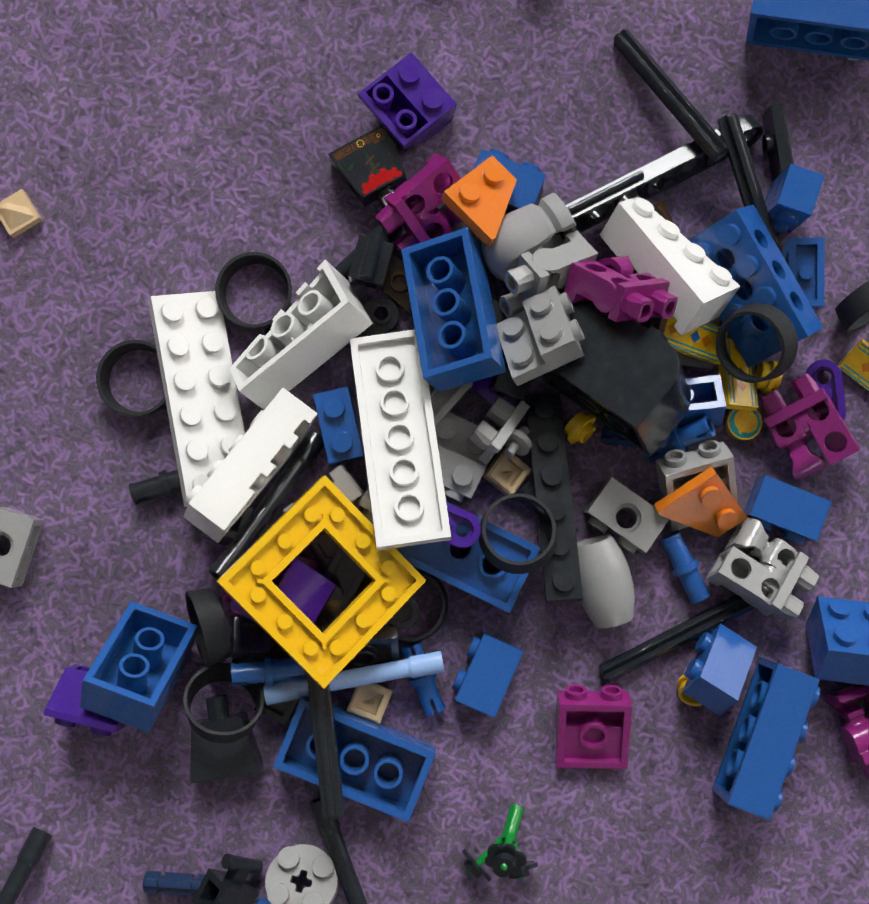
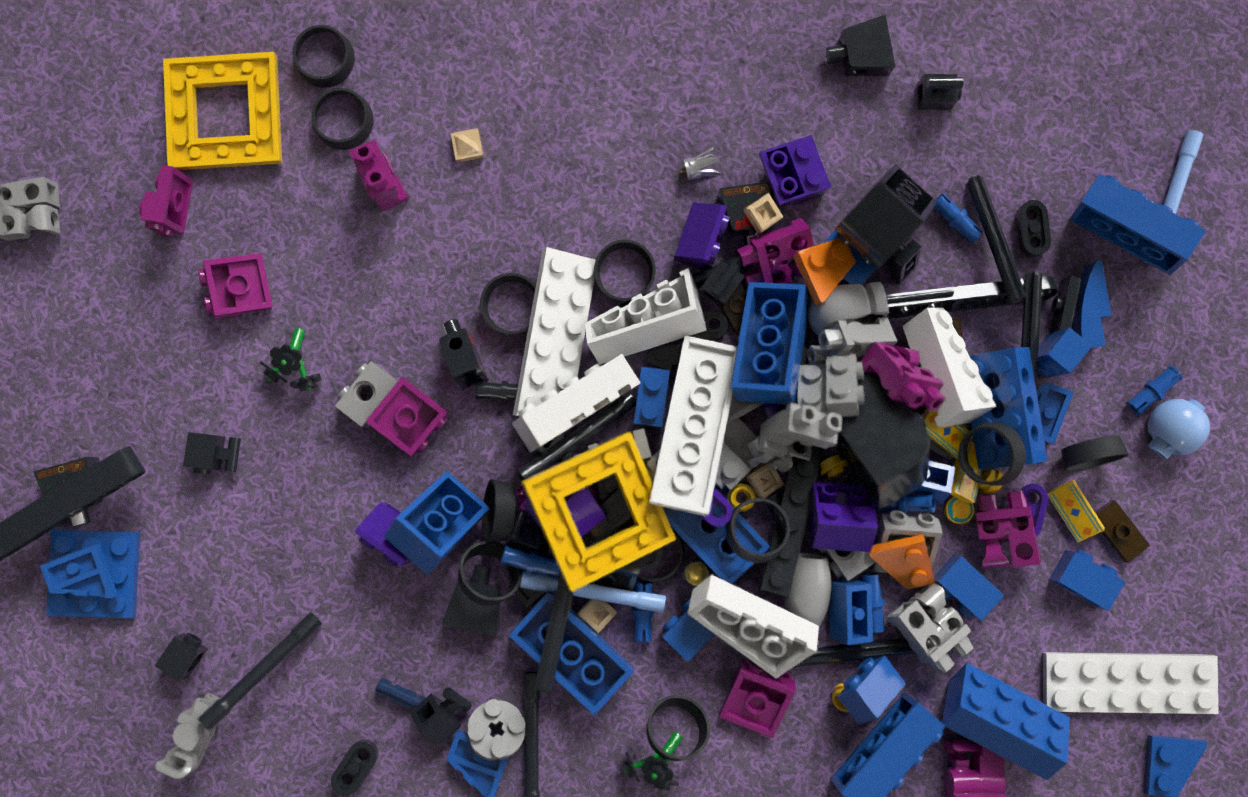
camera: 20 degrees right, 0 degrees up
(61, 555) = (407, 417): none -> magenta plate
(99, 460) = (462, 355): none -> black torso
(289, 138) = (693, 165): none -> flat silver piece
(326, 219) = (698, 238): none -> dark purple slope
(335, 372) = (663, 356): none -> black plate
(388, 163) = (763, 213): none -> tan tile
(466, 610) = (695, 572): none -> clear yellow piece
(479, 494) = (747, 490): none -> yellow plate
(519, 392) = (800, 425): none -> light grey hips
(523, 769) = (698, 714): none -> black tyre
(529, 113) = (886, 216): none -> black brick
(554, 647) = (753, 626): none -> white wedge
(573, 158) = (904, 261): none -> black plate
(611, 482) = (842, 517): none -> dark purple slope
(616, 88) = (957, 218): none -> blue pin
(662, 588) = (851, 612): none -> blue brick
(710, 68) = (1033, 229): none -> black plate
(808, 130) = (1092, 305): none -> blue slope

